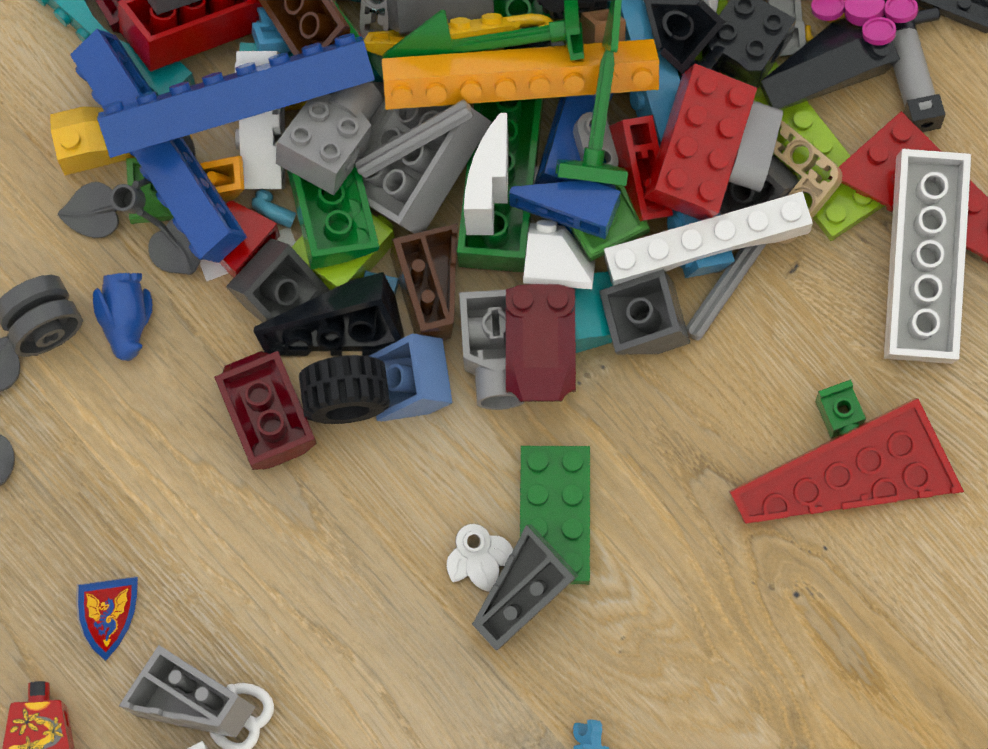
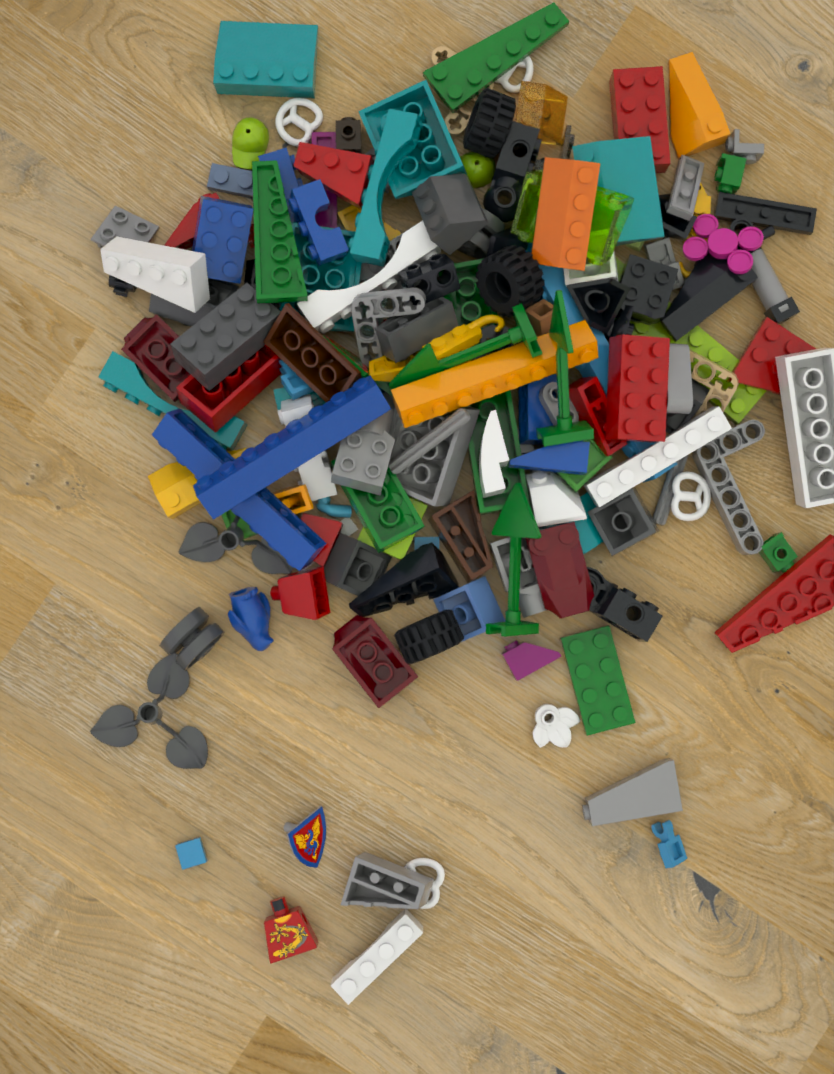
camera: 20 degrees left, 15 degrees up
(199, 296) = (303, 593): none -> red torso
(469, 458) = (527, 658): none -> magenta slope
(496, 271) = (516, 522): none -> green piece
(524, 587) = (596, 747): dark grey wedge -> none
(564, 677) = (640, 795): none -> light grey slope
(601, 412) = (612, 606): none -> black brick
(741, 309) = (701, 508): none -> white piece
(795, 308) = (728, 484): none -> light grey beam

